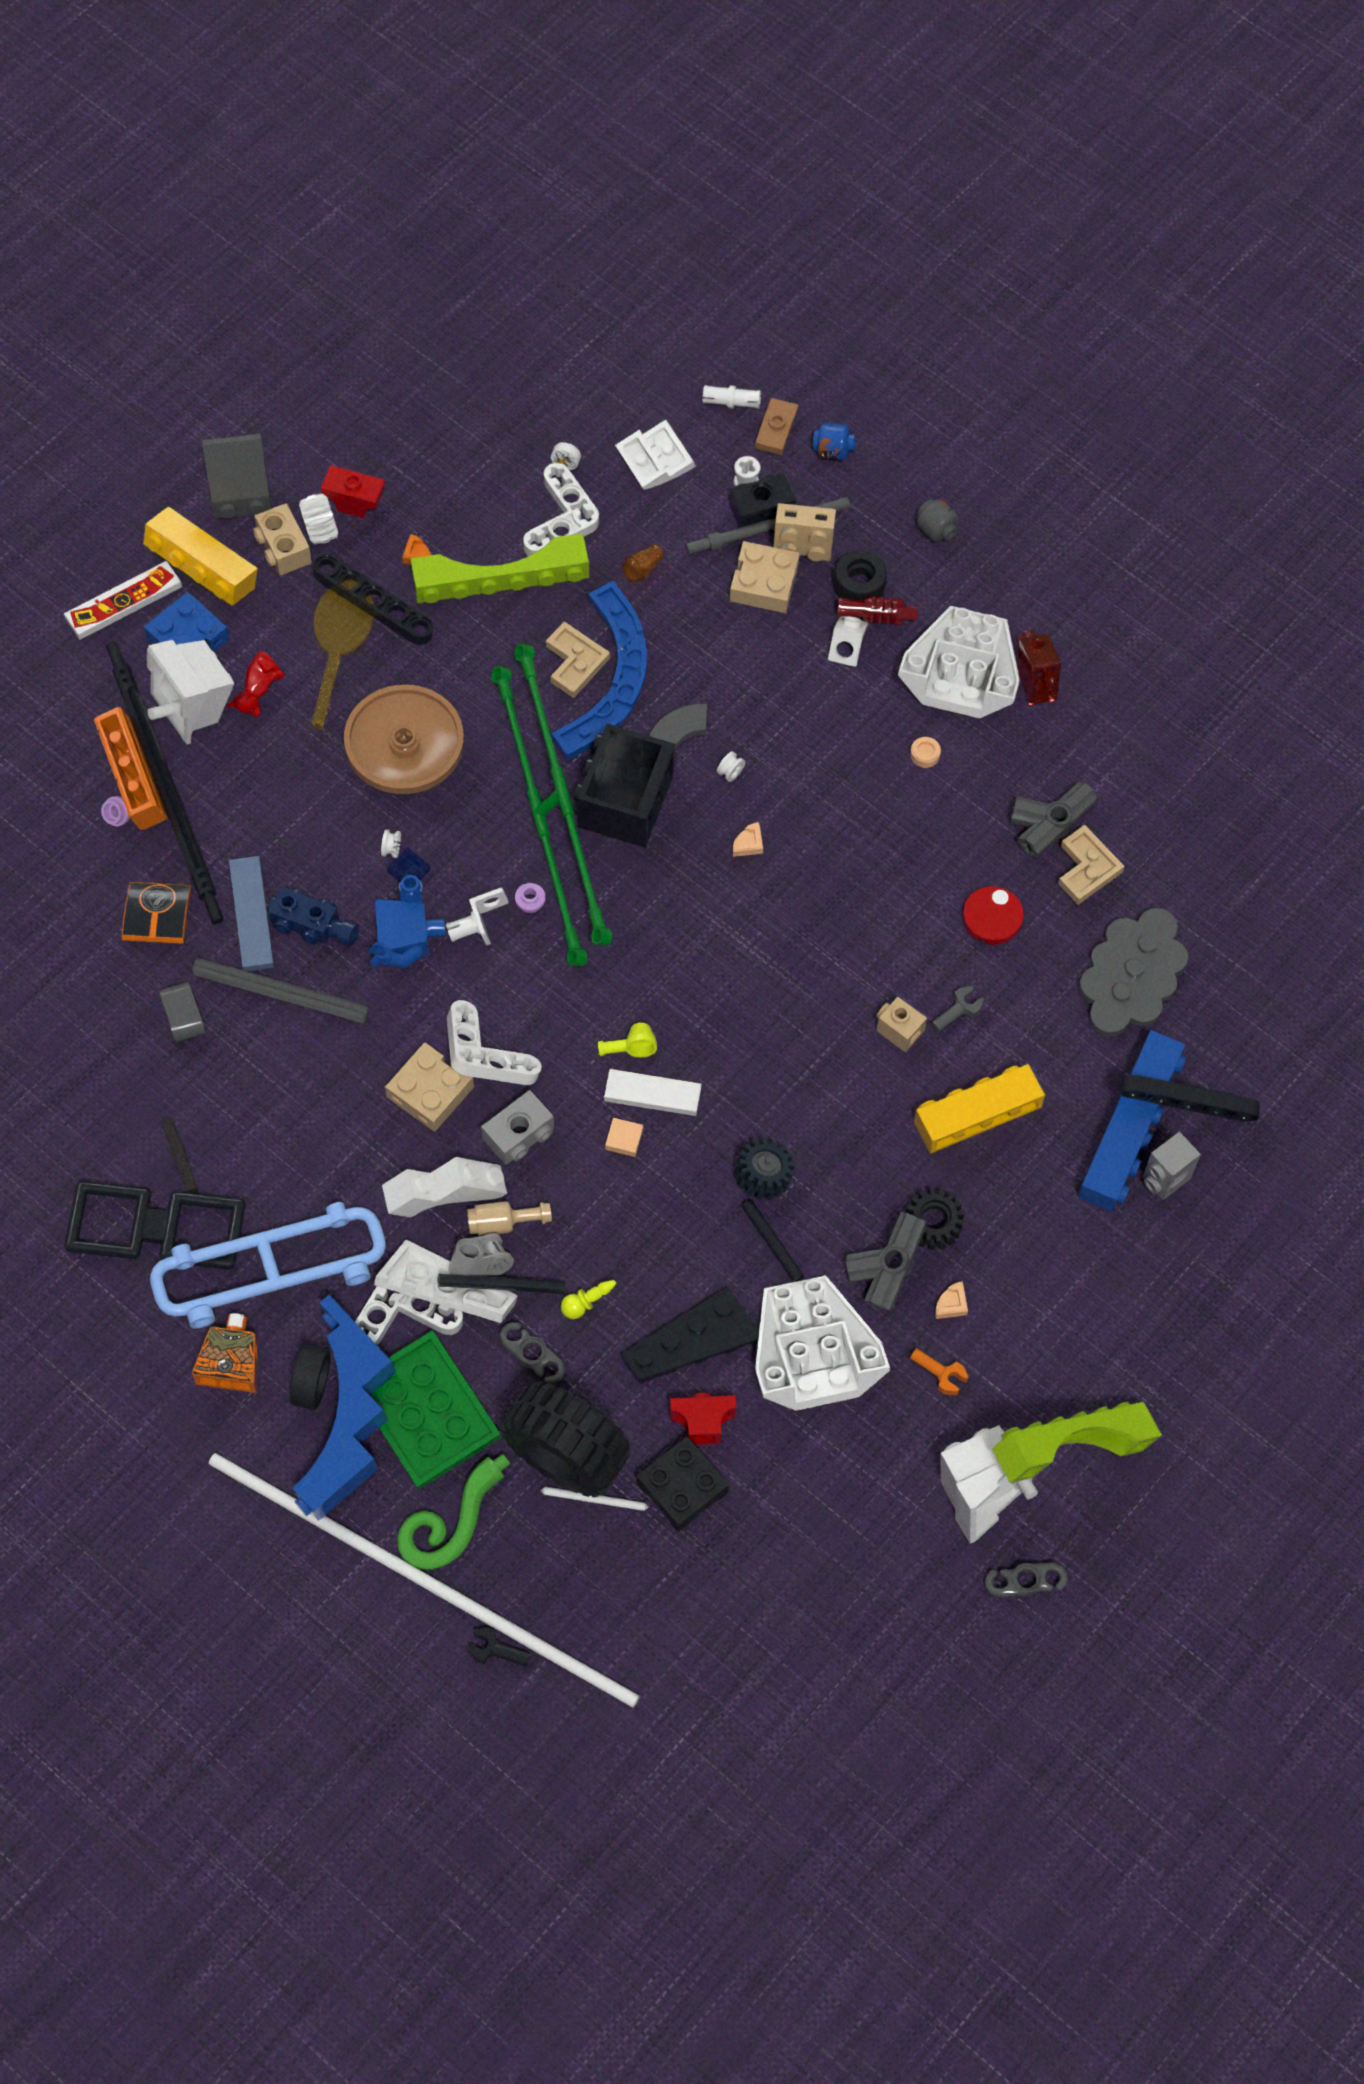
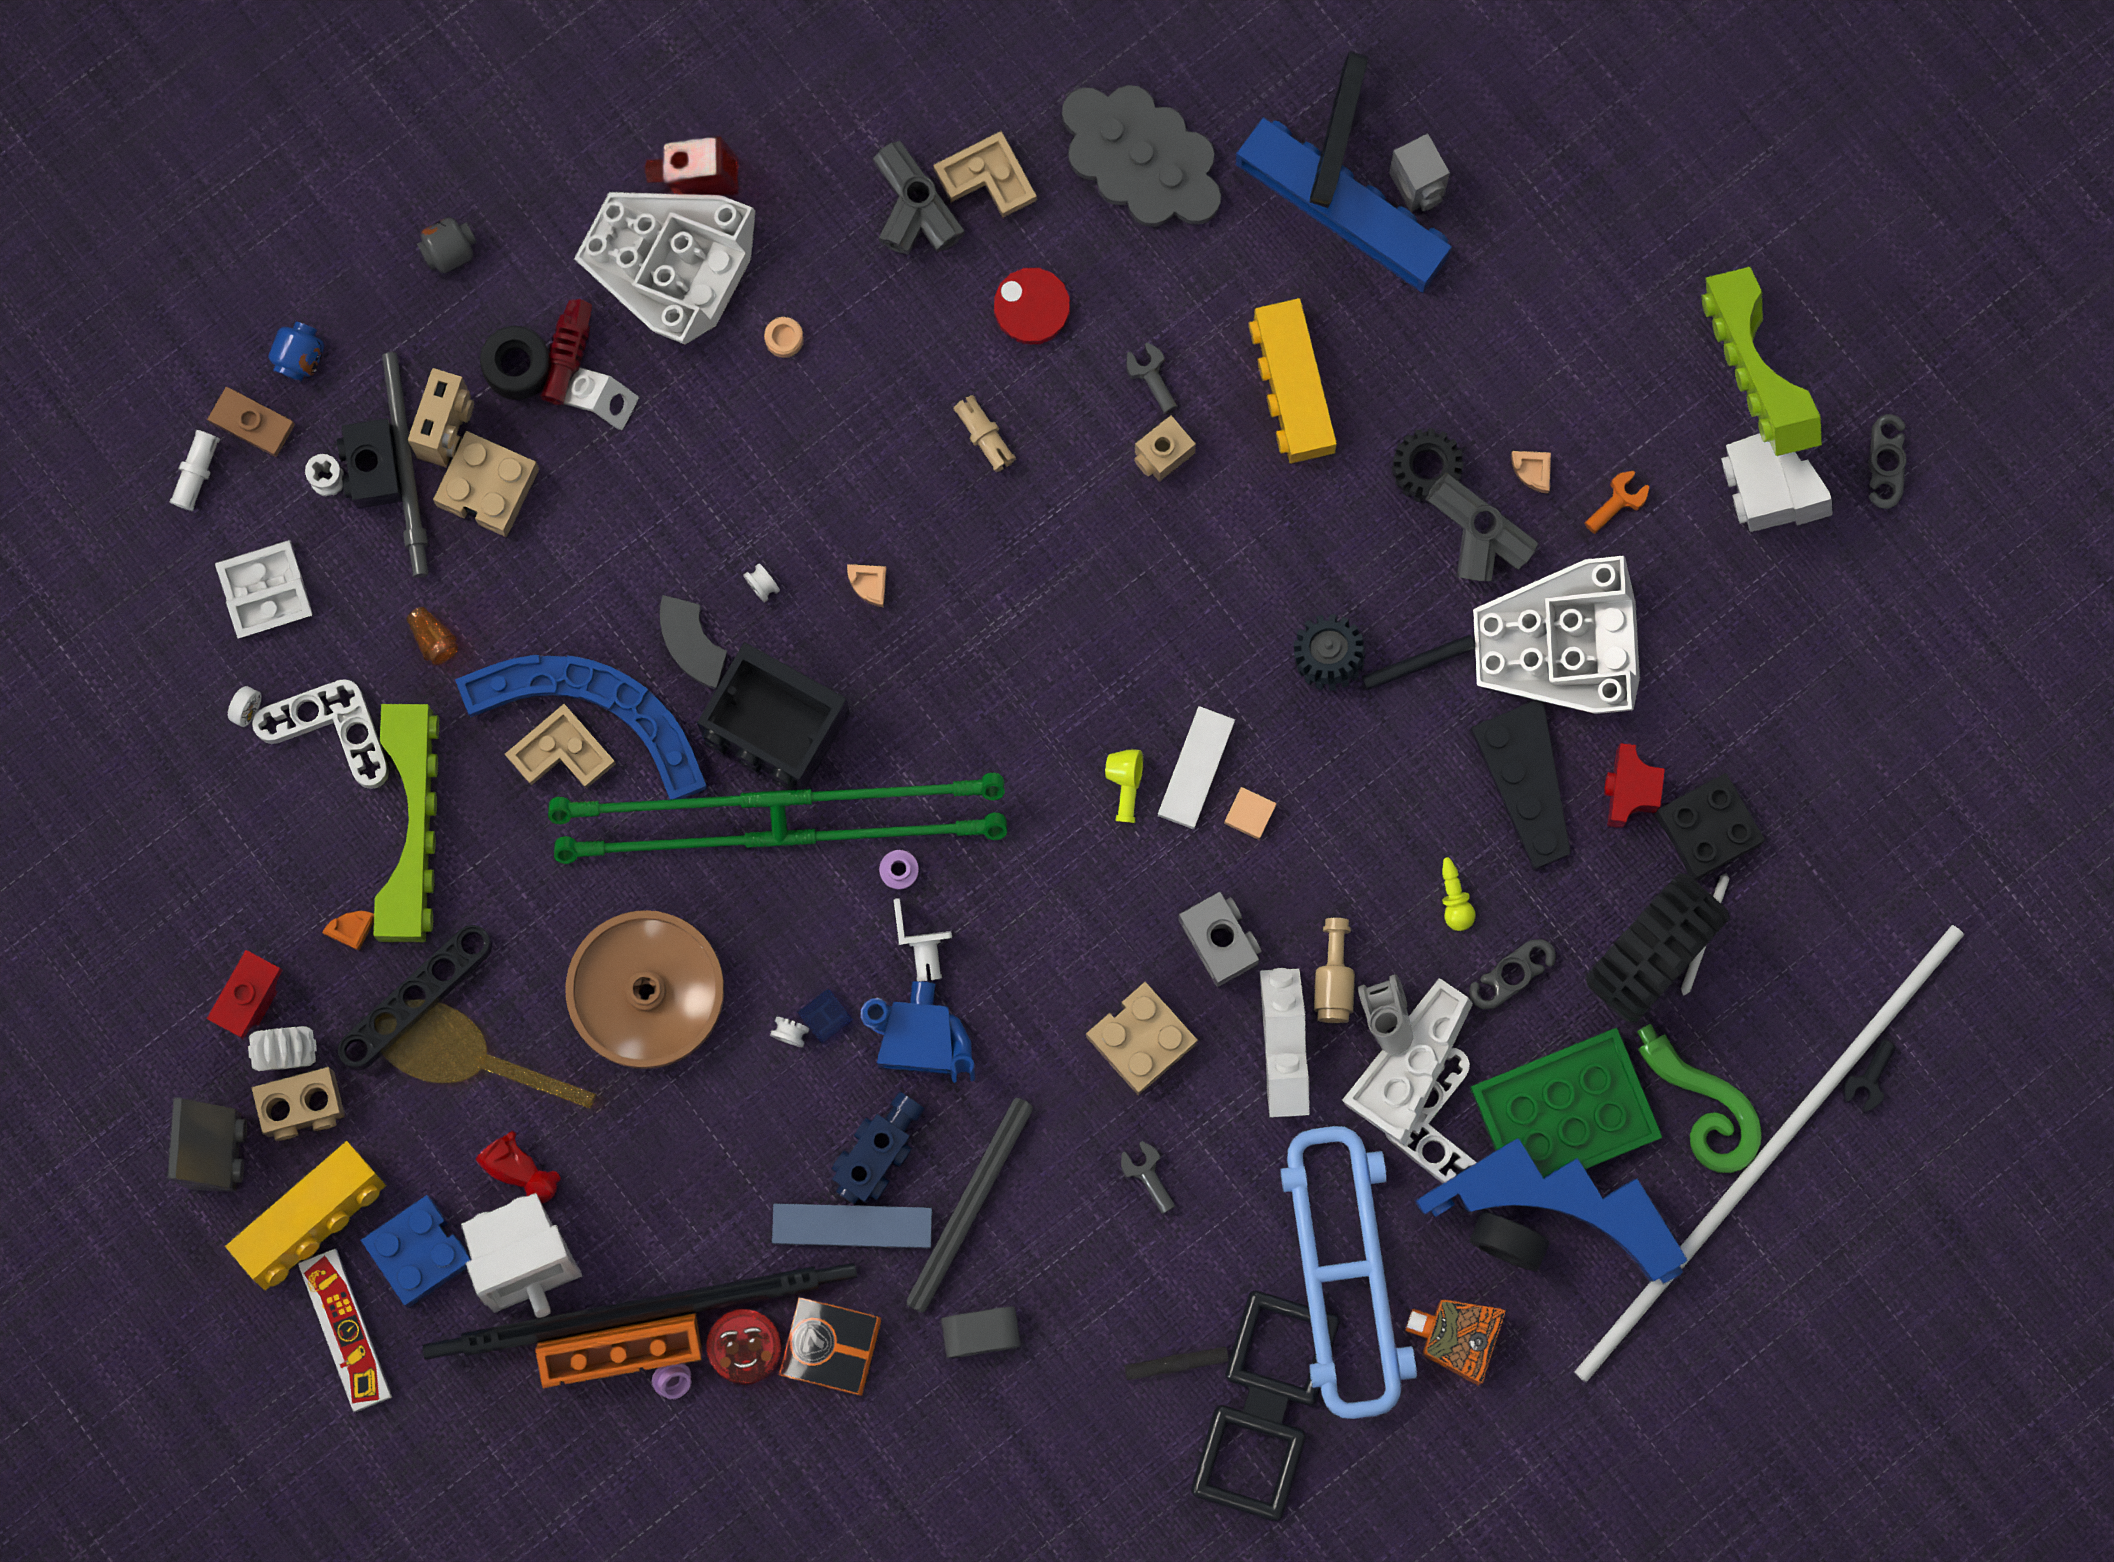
camera: 75 degrees left, 15 degrees up
(147, 854) = (744, 1346): none -> clear red head
(325, 1110) = (1148, 1176): none -> dark grey bar
(501, 1283) = (1424, 994): black piece -> none
(524, 1067) = (1111, 974): white beam -> none
(883, 898) = (984, 433): none -> tan pin

